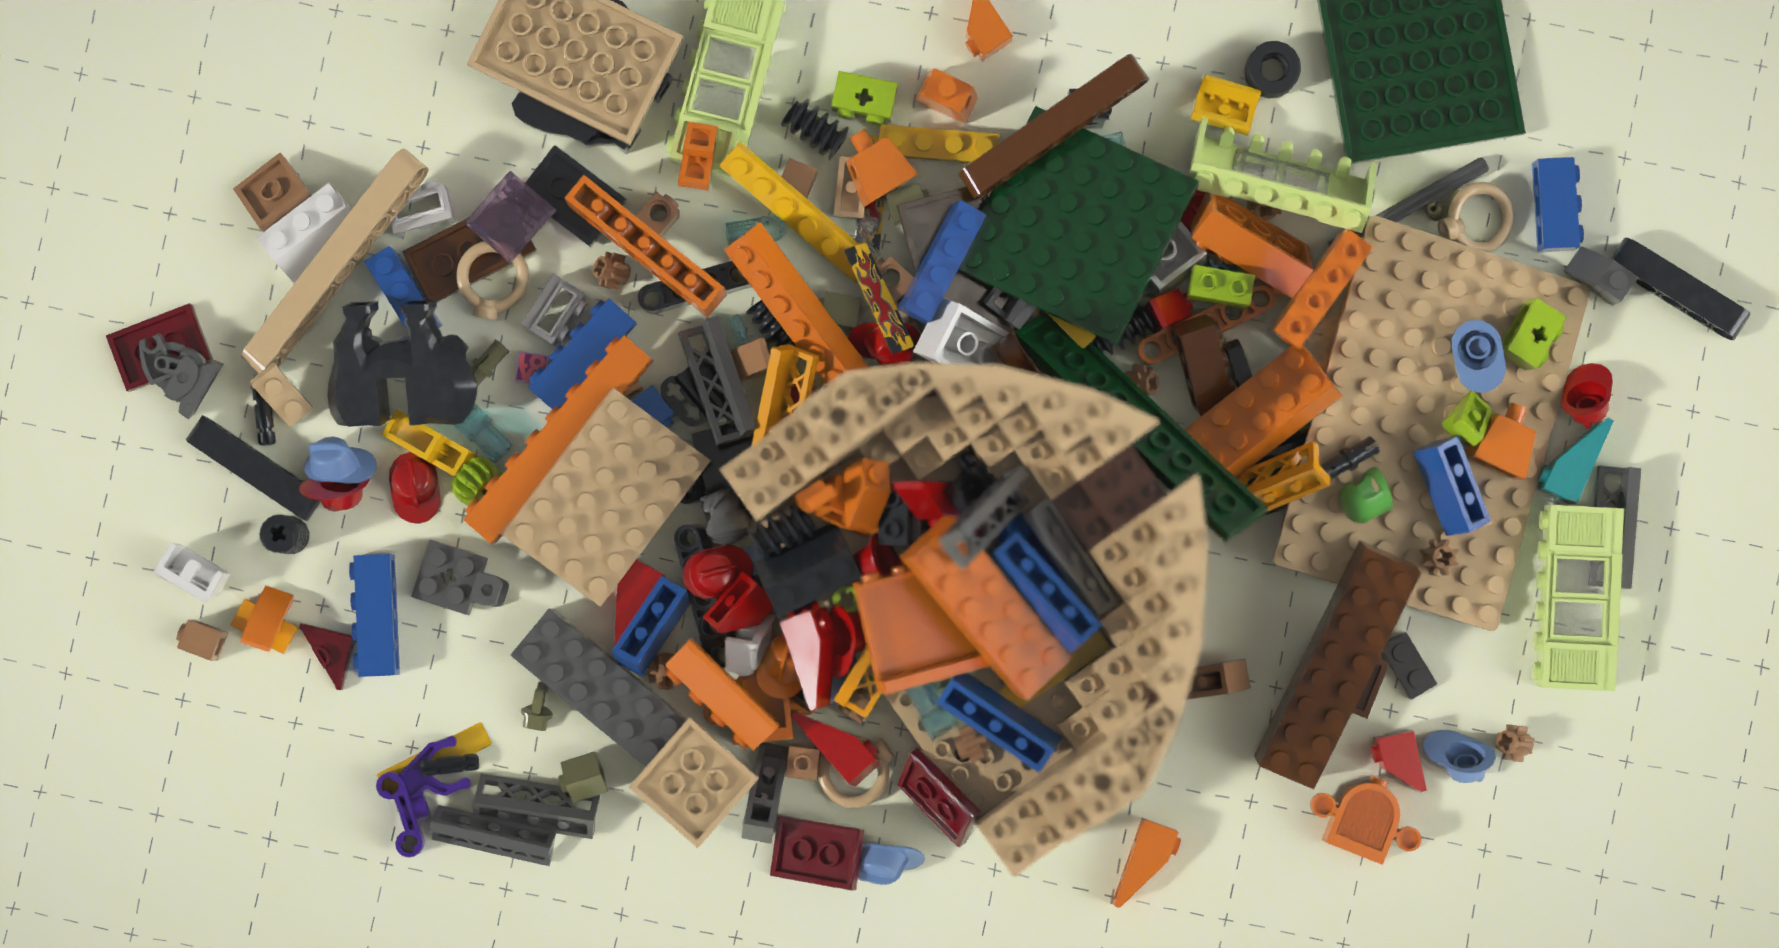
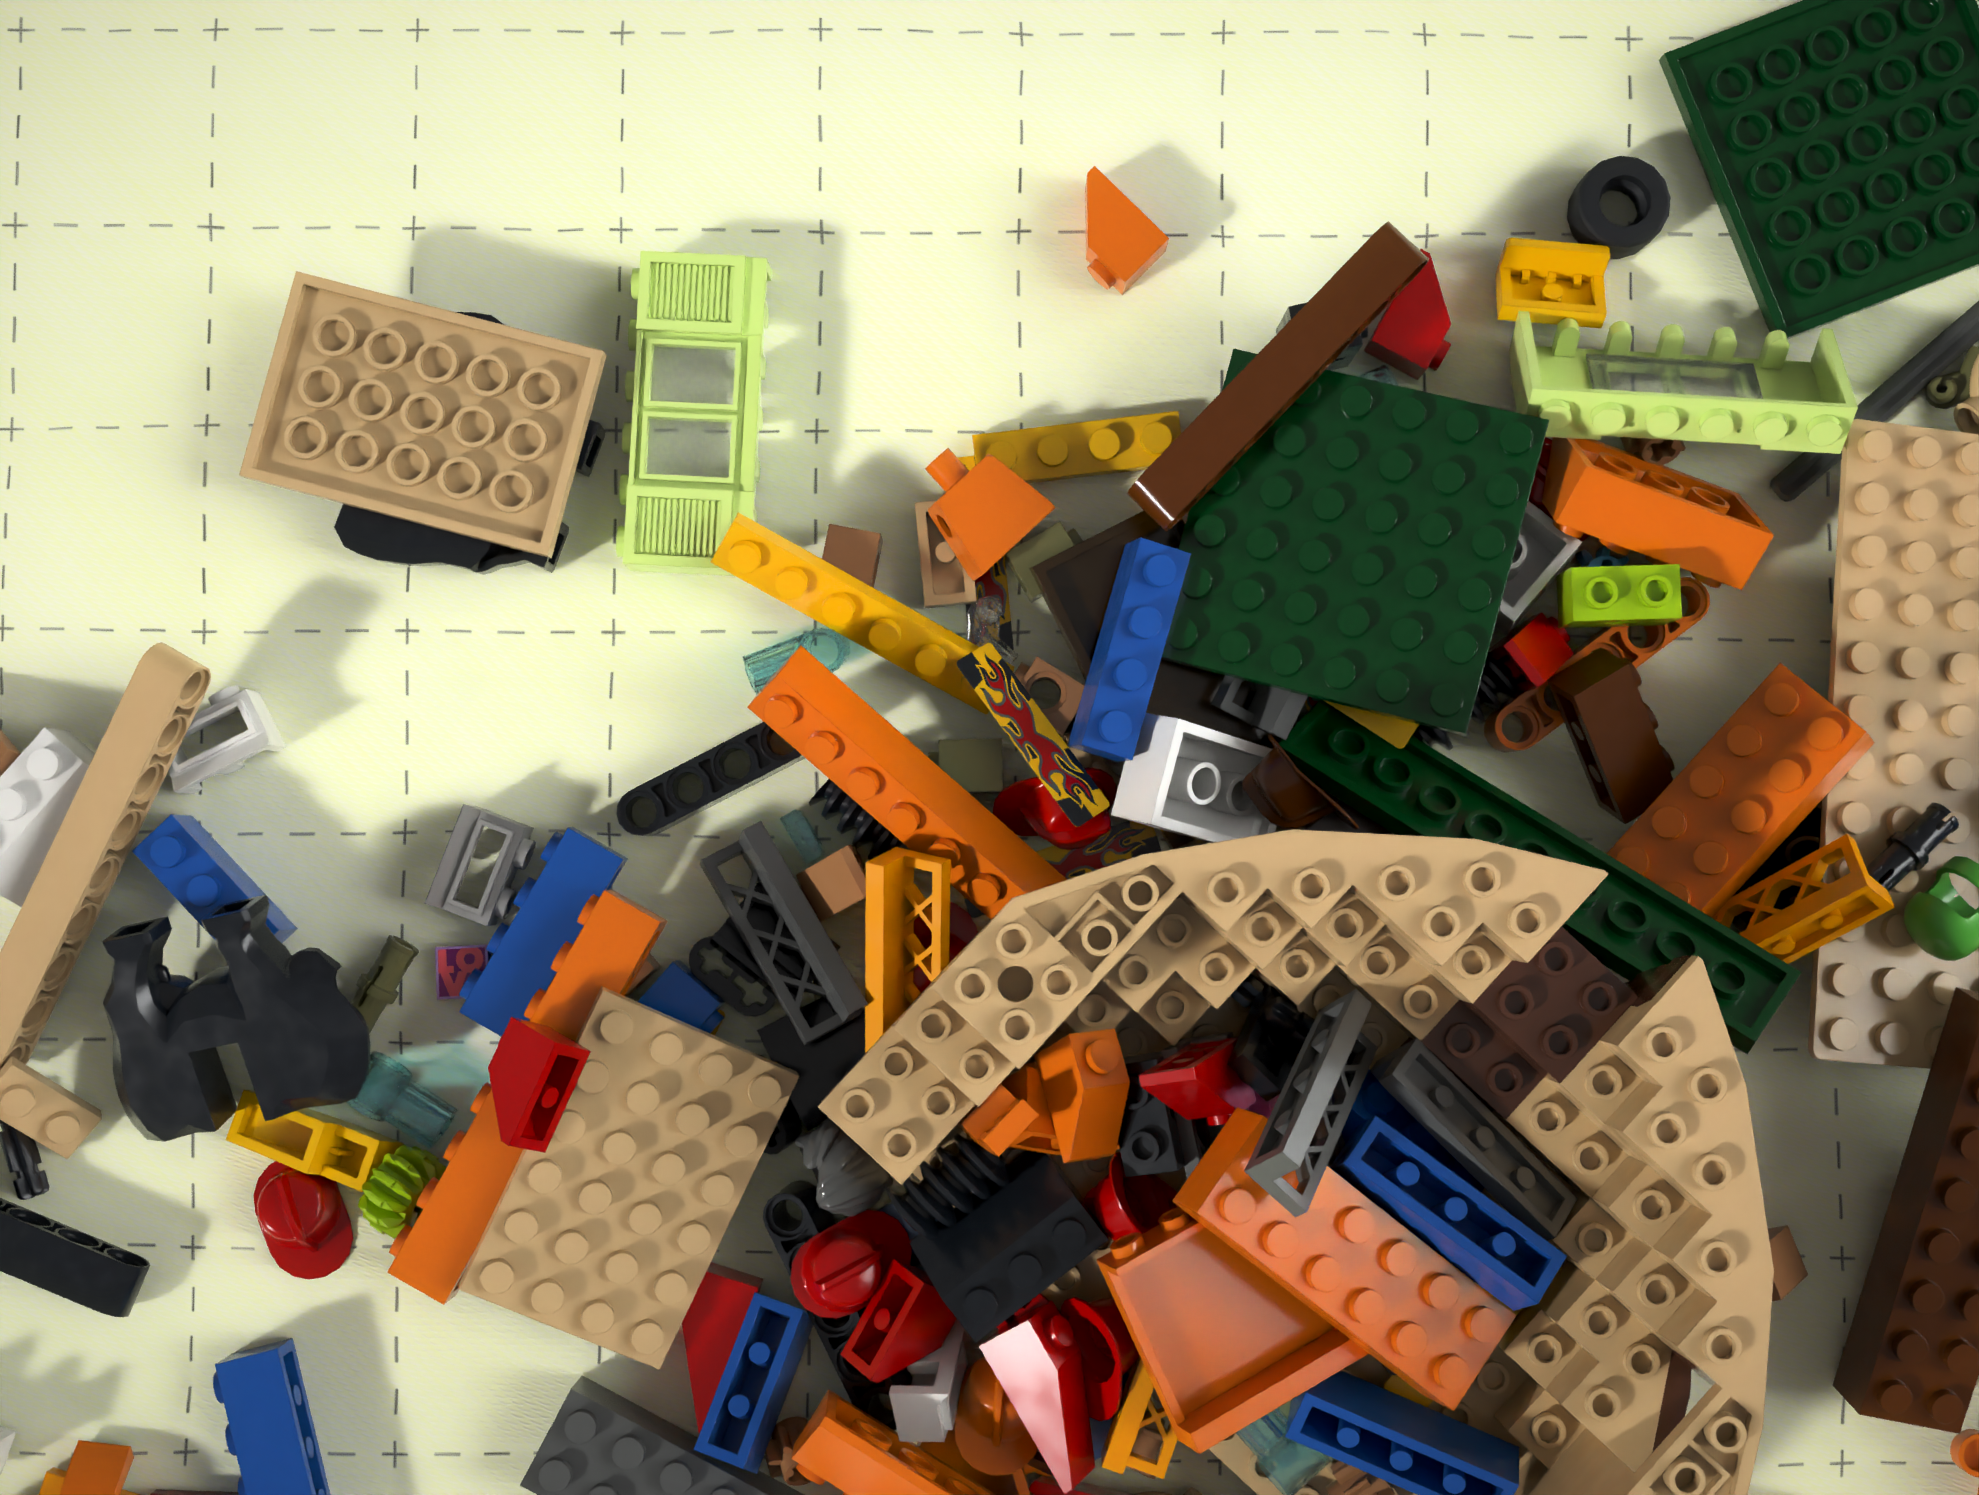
camera: 10 degrees left, 0 degrees up
(274, 540) = (86, 1354): black piece -> none
(334, 495) = (164, 1254): red piece -> none
(337, 462) = (161, 1204): medium blue piece -> none
(437, 259) = (317, 792): reddish brown tile -> none
(471, 581) = (432, 1370): dark grey plate -> none
(486, 307) = (362, 884): tan piece -> none
(510, 216) = (369, 722): clear purple slope -> none
(555, 179) = (472, 663): black plate -> none
(566, 429) = (533, 1082): none -> red slope
(611, 270) = (564, 778): medium nougat gear -> none
(645, 246) = (611, 727): orange brick -> none
(663, 203) = (624, 692): medium nougat brick -> none
(698, 156) = (671, 552): orange slope -> none
(815, 127) = (862, 463): black piece -> none
(836, 598) = (1089, 1295): lime bush -> none
(853, 86) = (911, 382): lime brick -> none
(947, 95) = (1076, 362): orange torso -> none
(1142, 111) = (1413, 326): none -> red slope
(1144, 378) = (1513, 778): medium nougat gear -> none
(1237, 362) = (1674, 728): black beam -> none
(1321, 288) = (1819, 529): orange panel -> none

